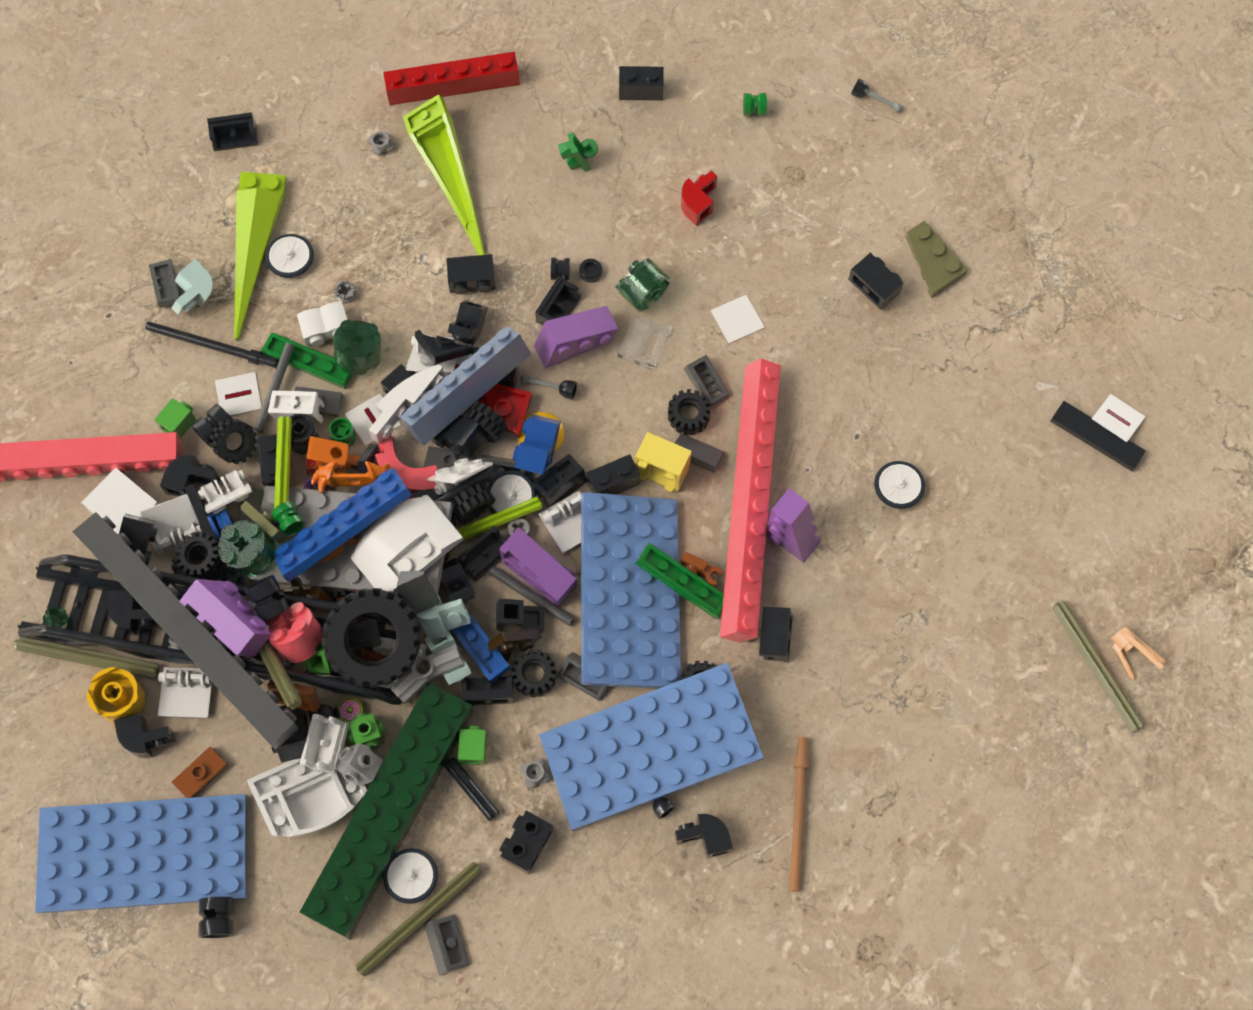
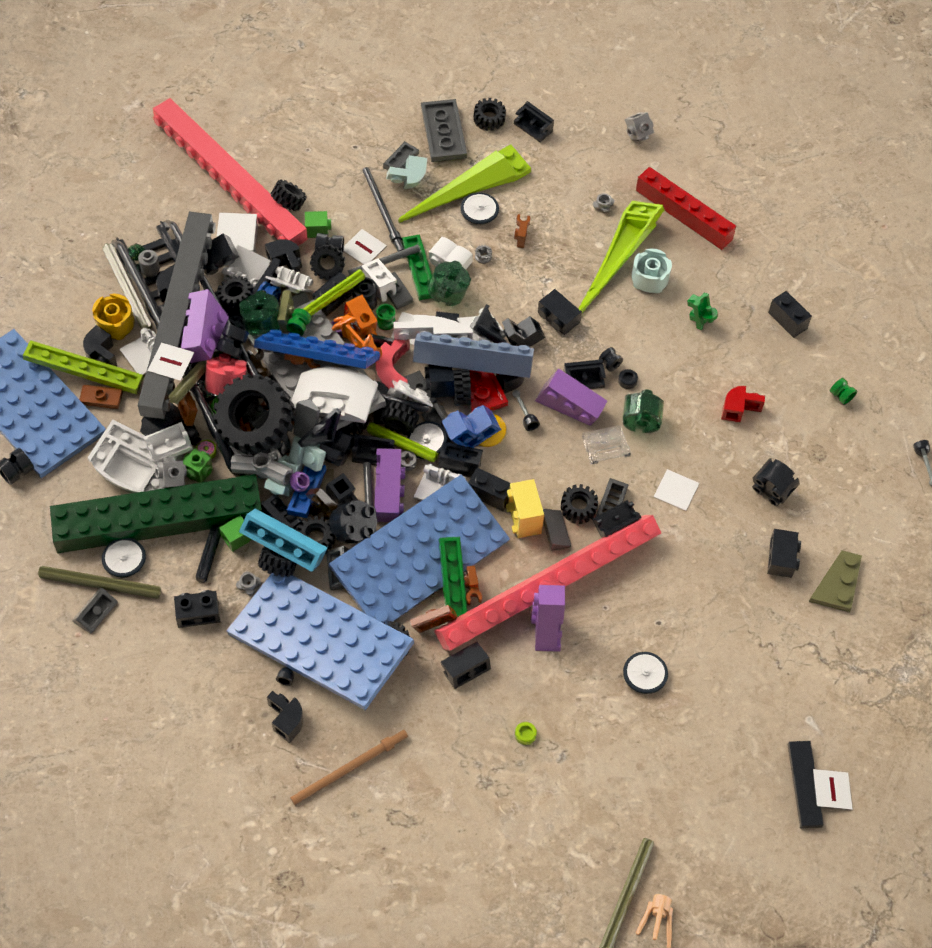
camera: 50 degrees right, 10 degrees down
(82, 614) = (149, 263): none -> light grey brick
(118, 420) = (288, 195): none -> black tyre
(151, 768) = (82, 367): none -> lime plate
(167, 219) = (443, 130): none -> dark grey plate
(182, 153) = (489, 106): none -> black tyre
(245, 675) = (170, 361): none -> white sticker
(325, 44) = (639, 126): none -> light grey brick
(353, 239) = (521, 233): none -> dark orange plate
(440, 585) = (323, 432): none -> black tile
(470, 646) = (303, 481): none -> medium lavender plate
(497, 160) = (651, 271): none -> light aqua brick
(525, 707) = (283, 539): none -> medium azure brick
(538, 728) = (275, 563): none -> black tyre
(555, 628) = (353, 522): none -> black brick
(710, 628) = (433, 618): none -> dark orange plate
(733, 392) = (616, 518): none -> black hinge
(803, 231) = (775, 481): none -> black brick
(880, 632) = (525, 733): none -> lime tile

